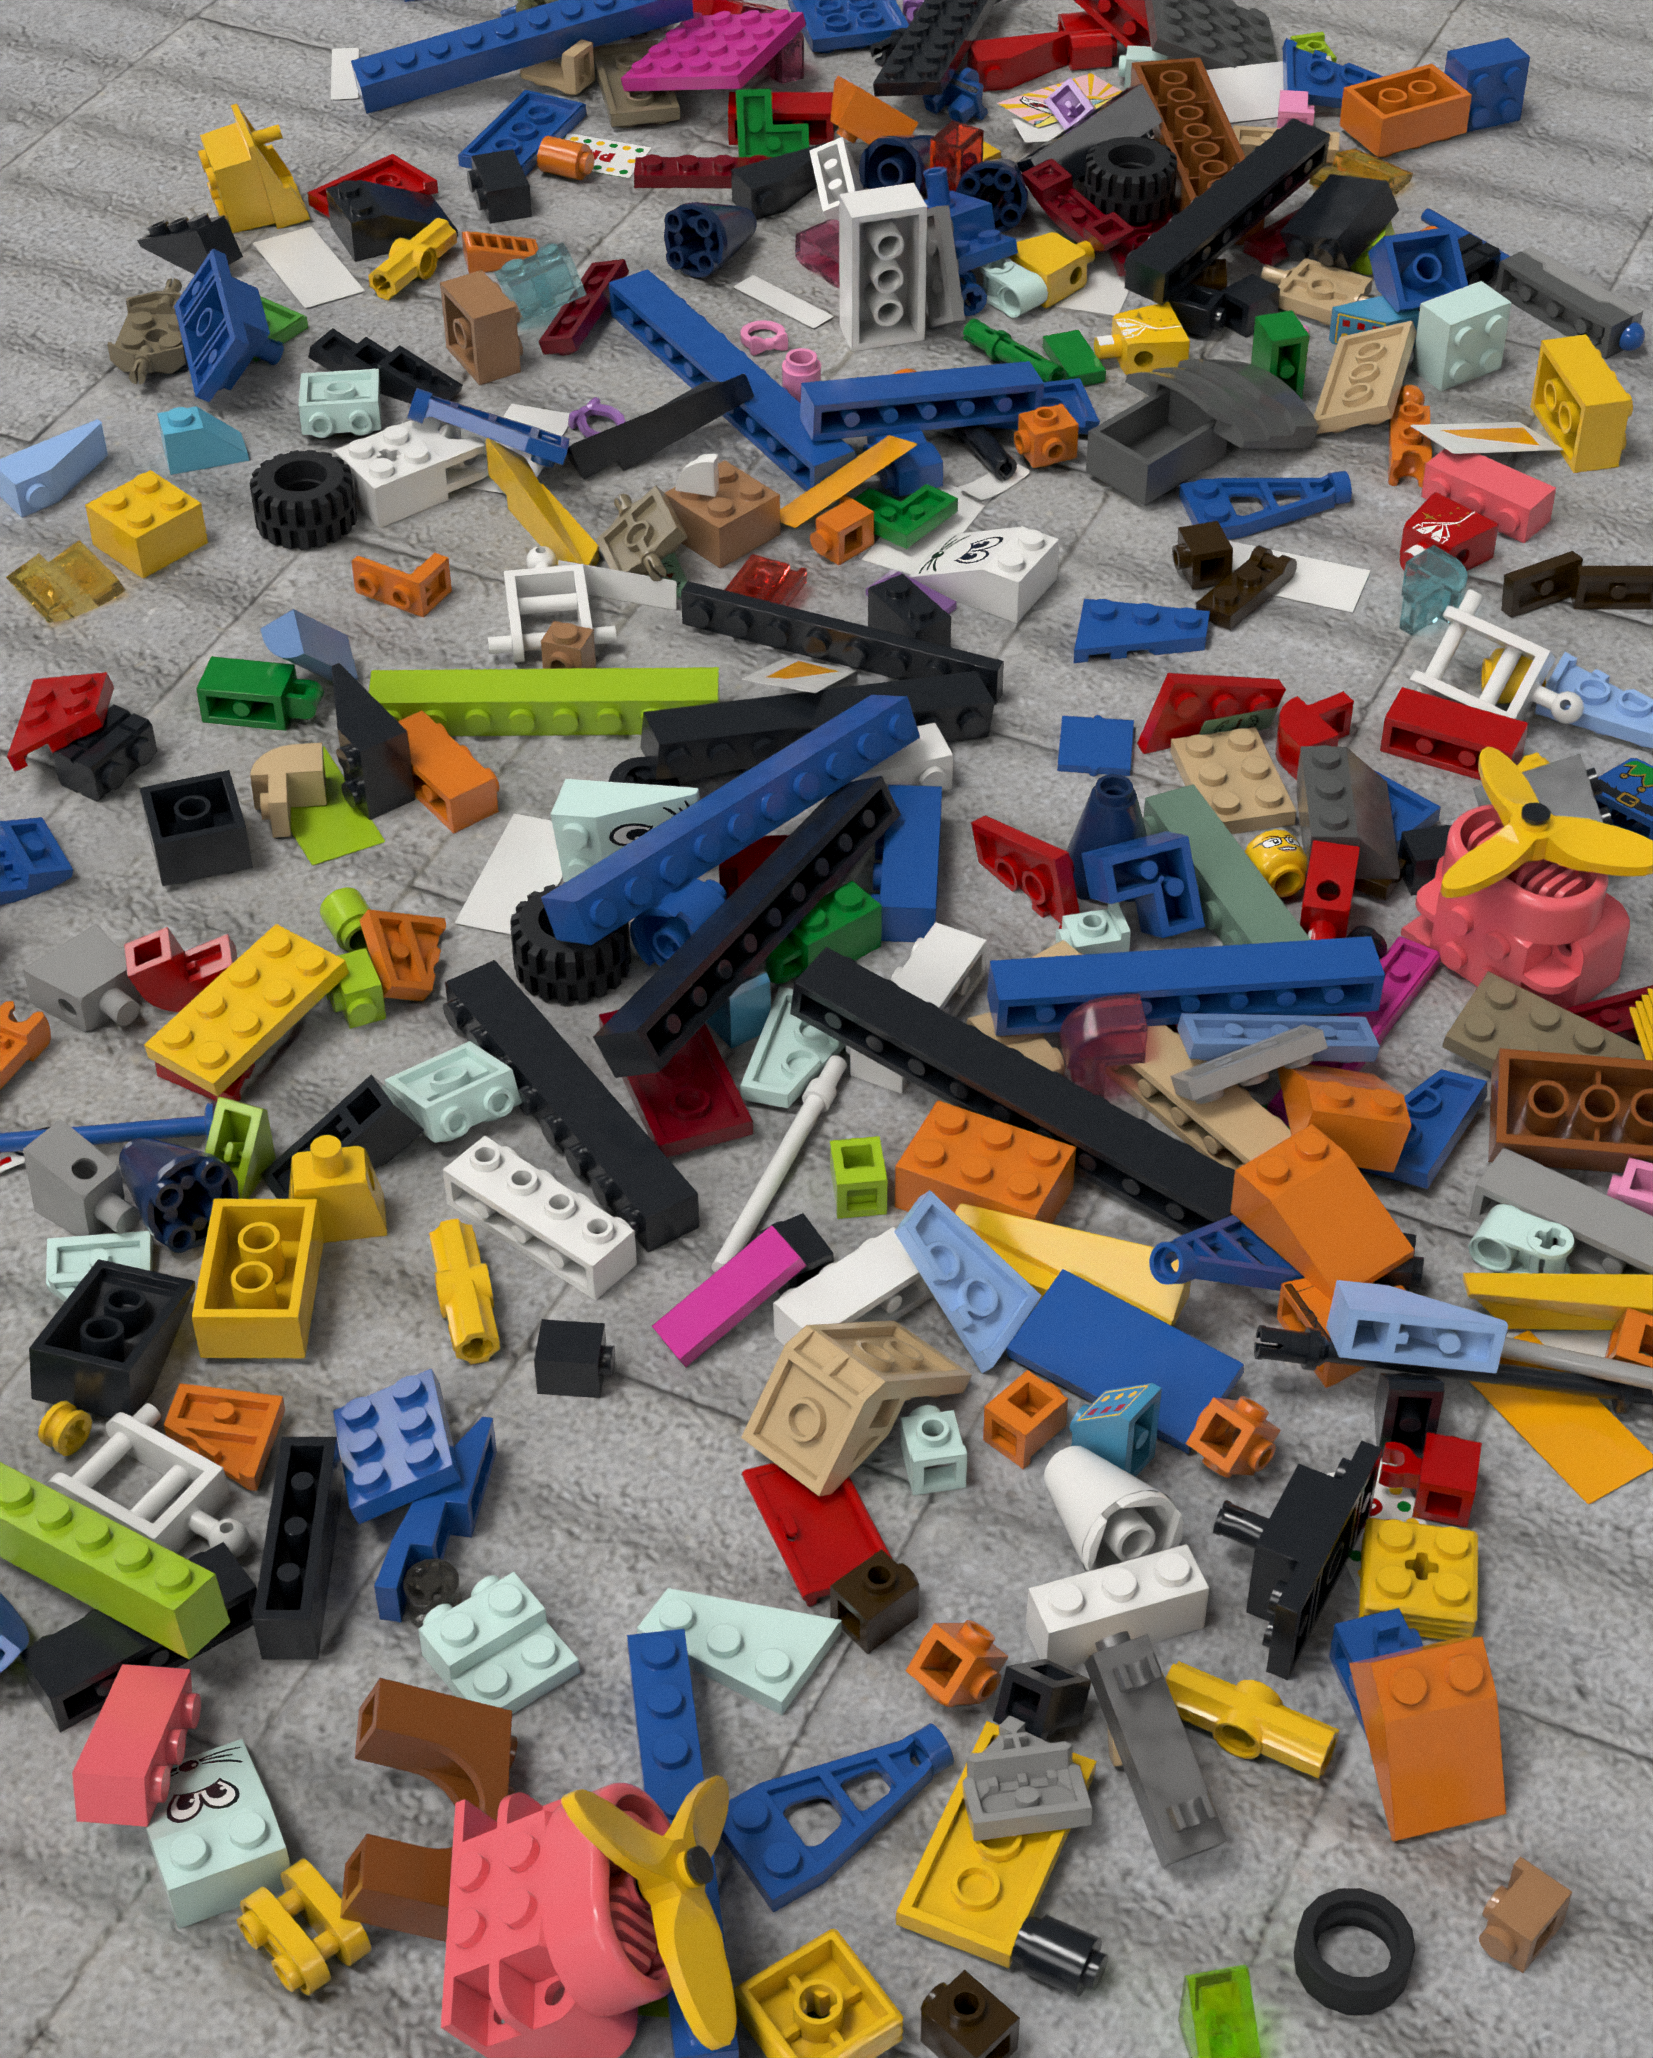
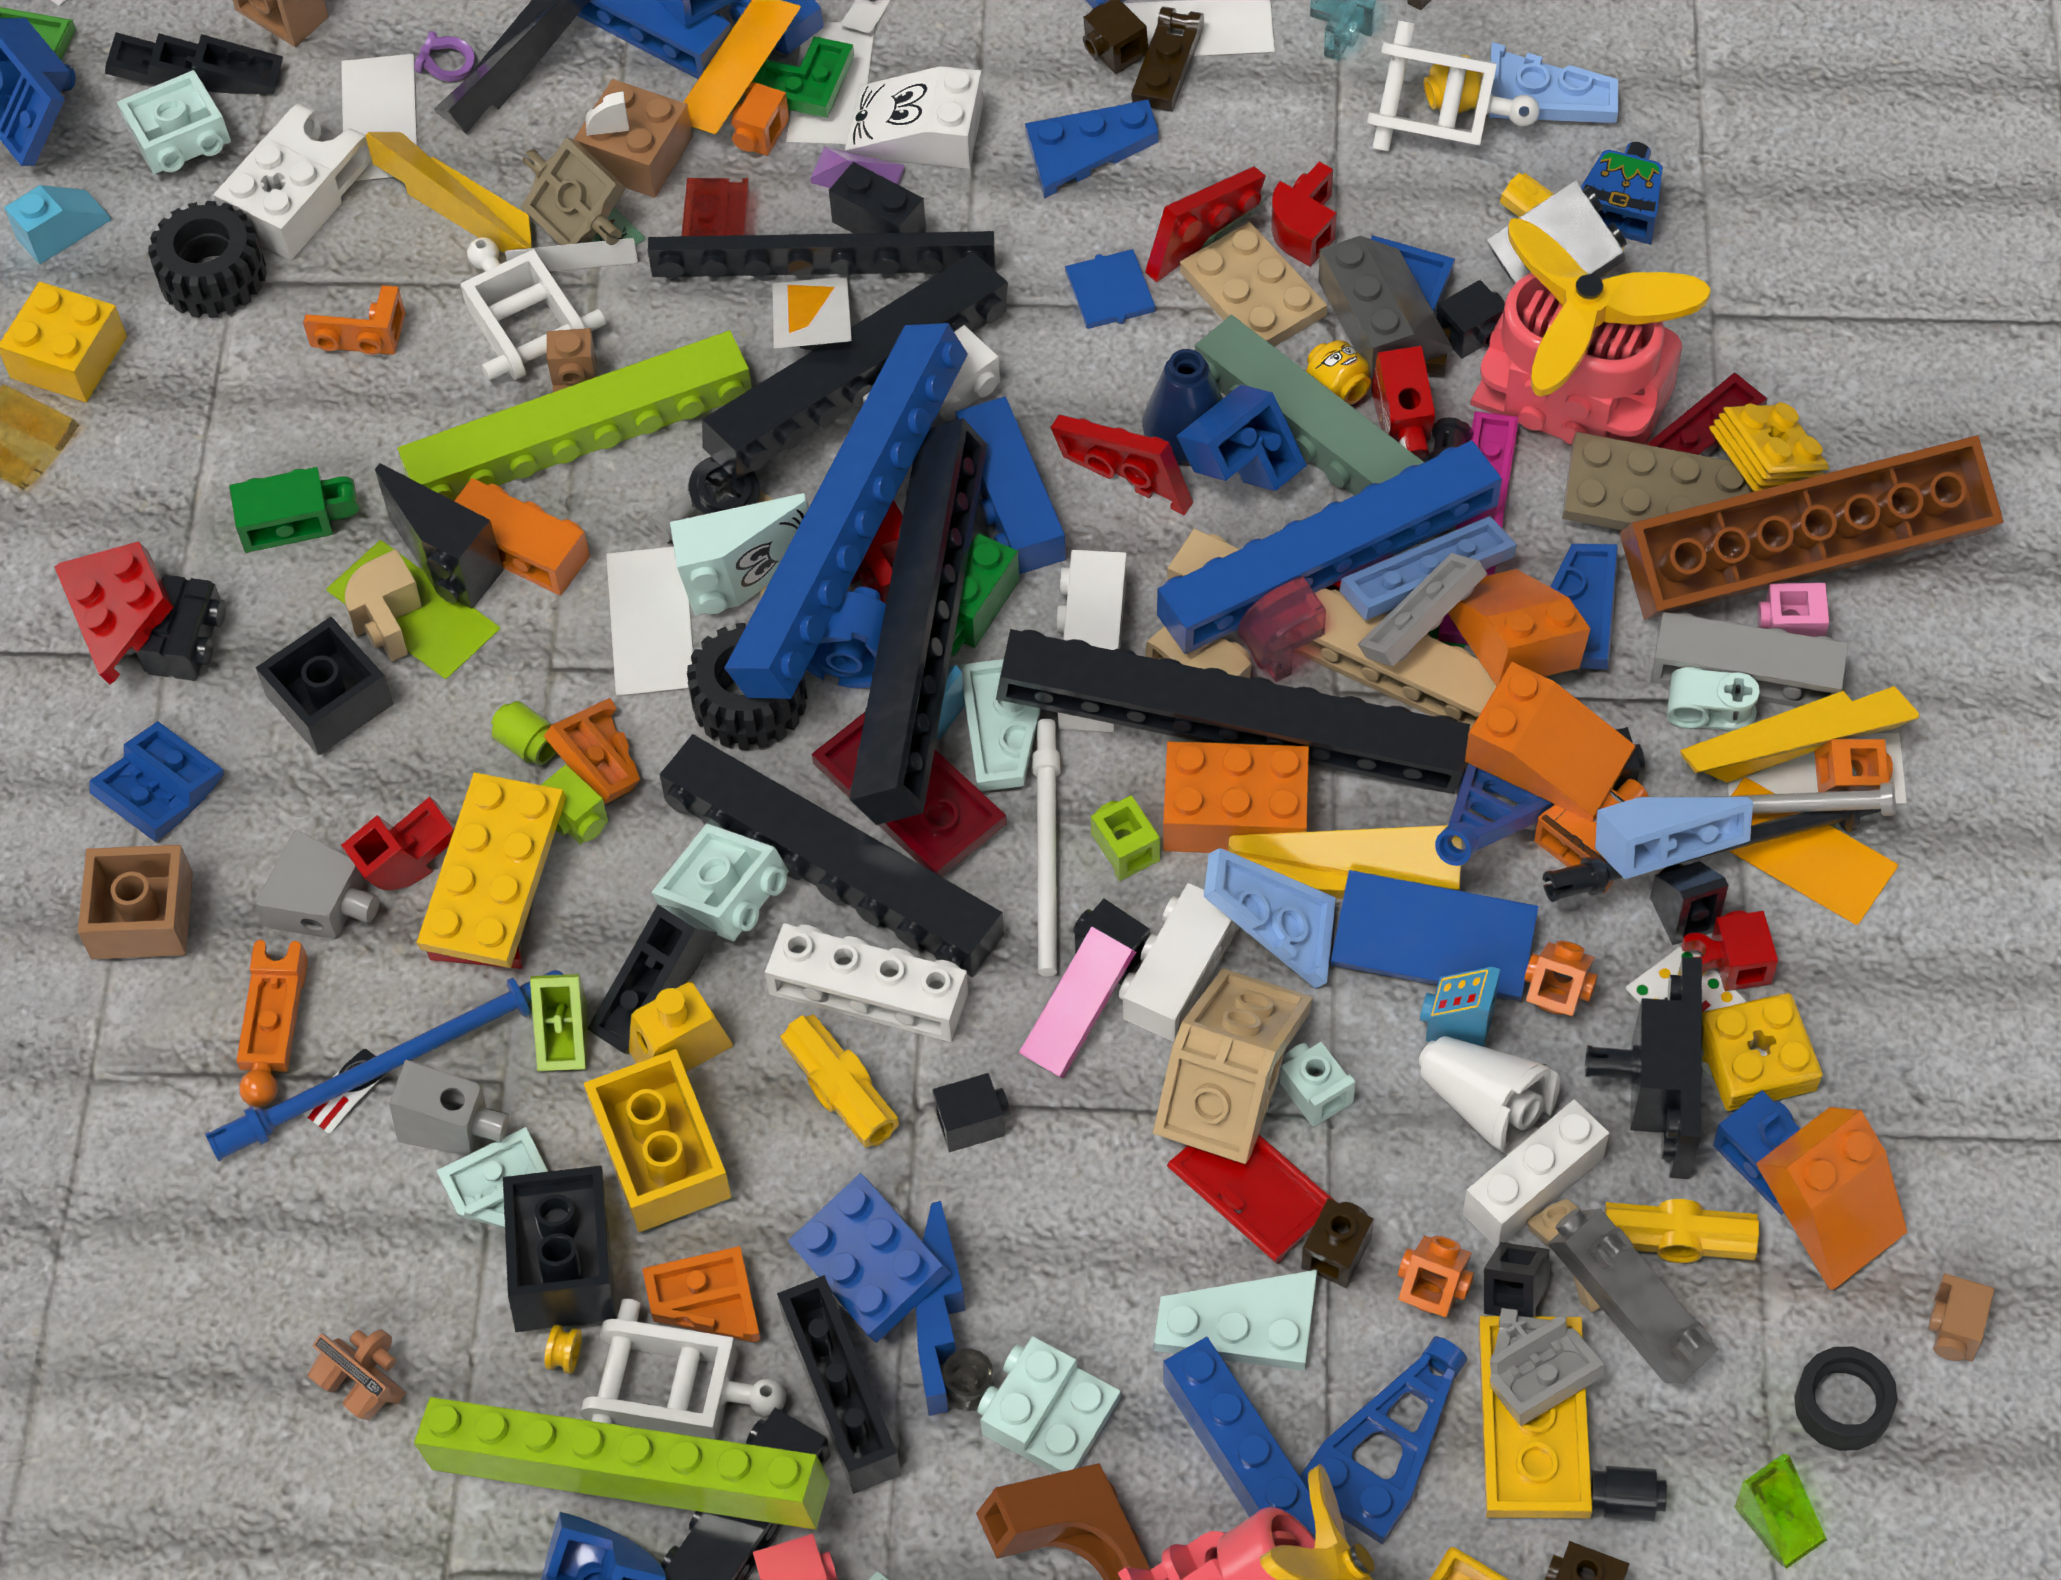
camera: 20 degrees left, 15 degrees up
(175, 1189) = (529, 1079): dark blue cone -> none
(309, 644) = (324, 442): medium blue brick -> none
(543, 445) = (412, 111): blue plate -> none
(1024, 1418) = (1379, 1023): orange brick -> none
(1096, 931) = (1214, 509): light aqua brick -> none
(1448, 733) = (1432, 173): red brick -> none

